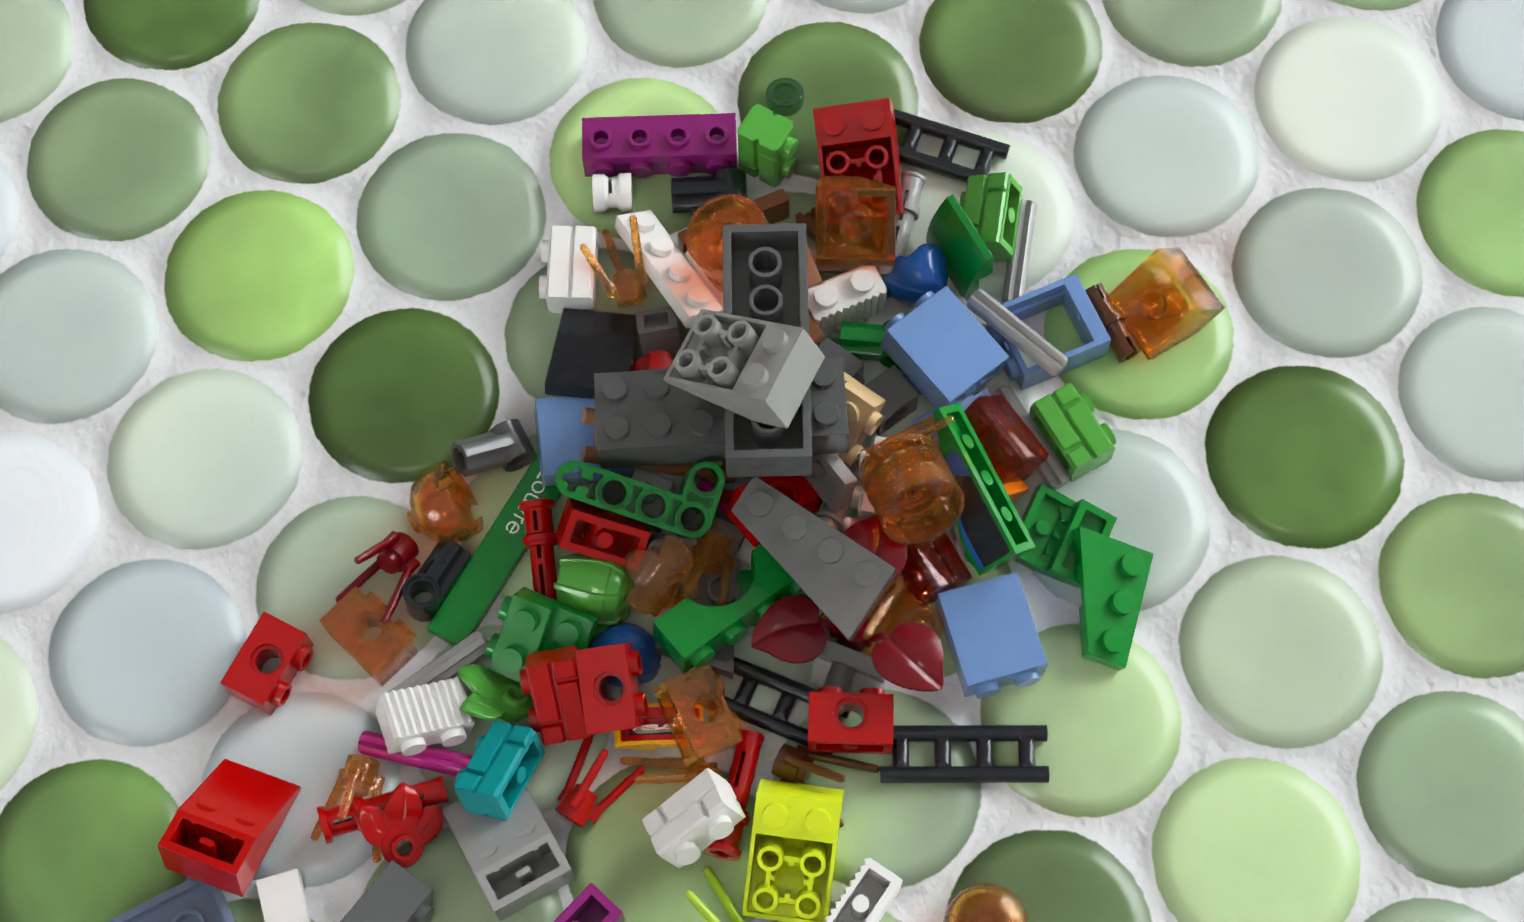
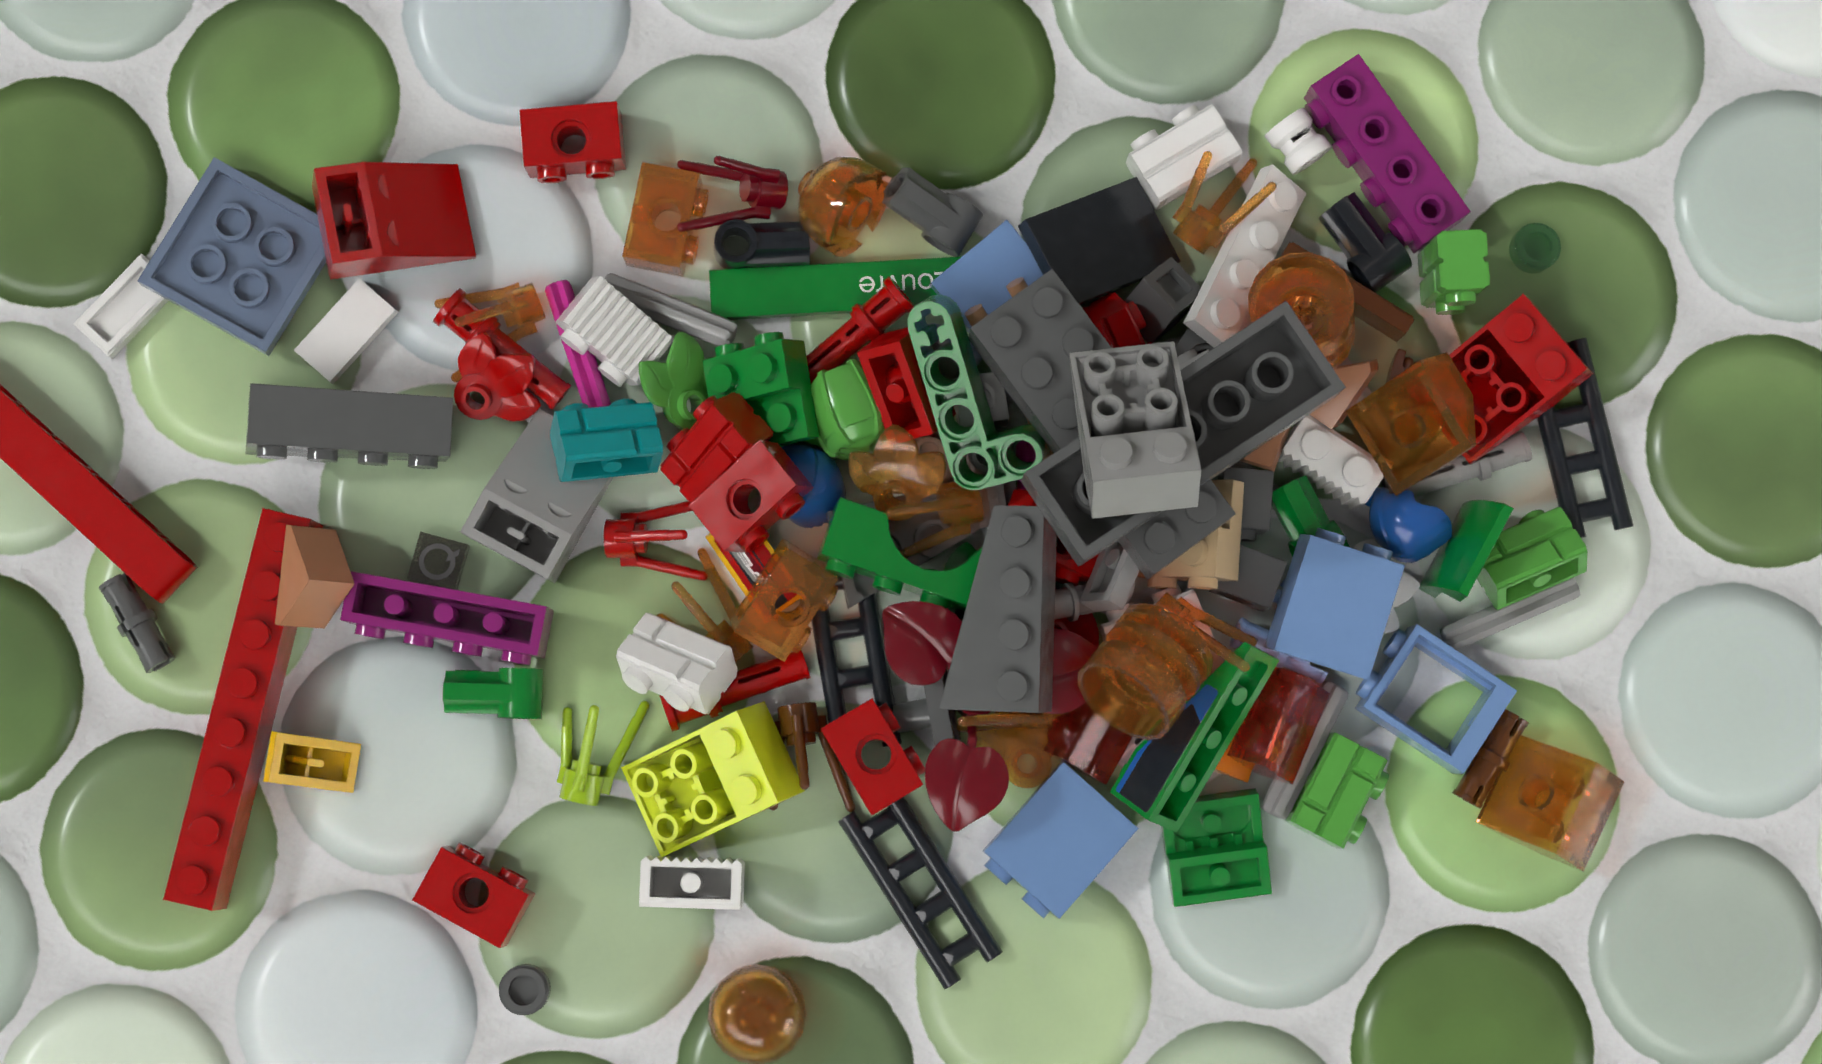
camera: 50 degrees right, 15 degrees up
(1017, 332) = (1404, 670): light grey axle -> none
(1111, 595) = (1181, 938): green wing -> none

